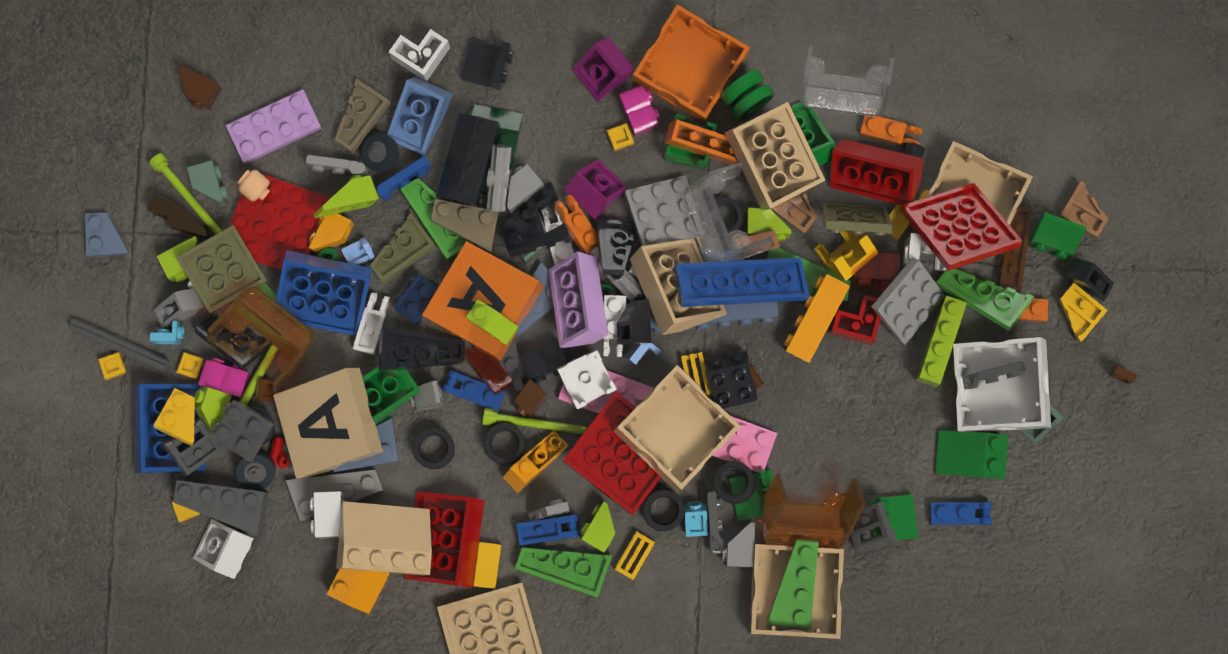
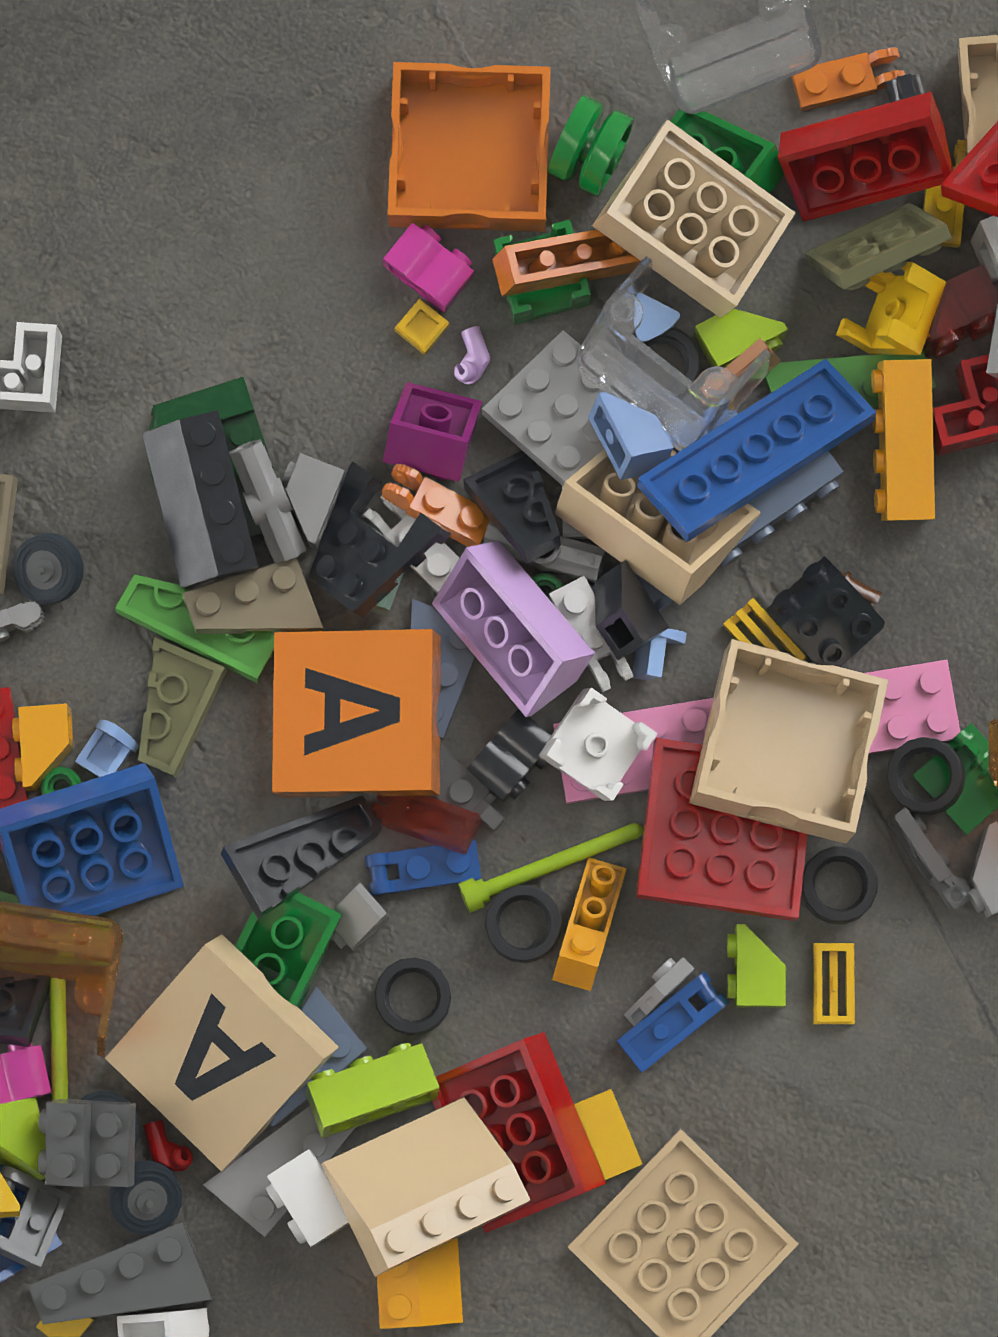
camera: 30 degrees left, 0 degrees up
(263, 391) = (83, 1058): reddish brown tile -> none
(355, 195) = (47, 661): lime slope -> none
(370, 326) = (197, 858): white hinge -> none
(388, 480) = (371, 1089): none -> lime brick
(404, 177) = (110, 588): blue plate -> none
(415, 299) = (245, 773): dark blue bracket -> none
(419, 114) = (76, 472): medium blue slope -> none
(487, 64) = (139, 328): black bracket -> none
(492, 322) = (397, 738): lime slope -> none
(530, 399) = (524, 828): reddish brown slope -> none
(571, 569) = (745, 1064): bright green wing -> none
(603, 69) = (332, 233): magenta slope -> none
(636, 166) = (475, 360): none -> lavender arm
(685, 242) = (629, 436): none -> medium blue slope
(695, 519) = (898, 869): medium azure bracket -> none
(730, 193) = (656, 318): none -> light blue tile
(797, 212) = (778, 291): medium nougat wing -> none

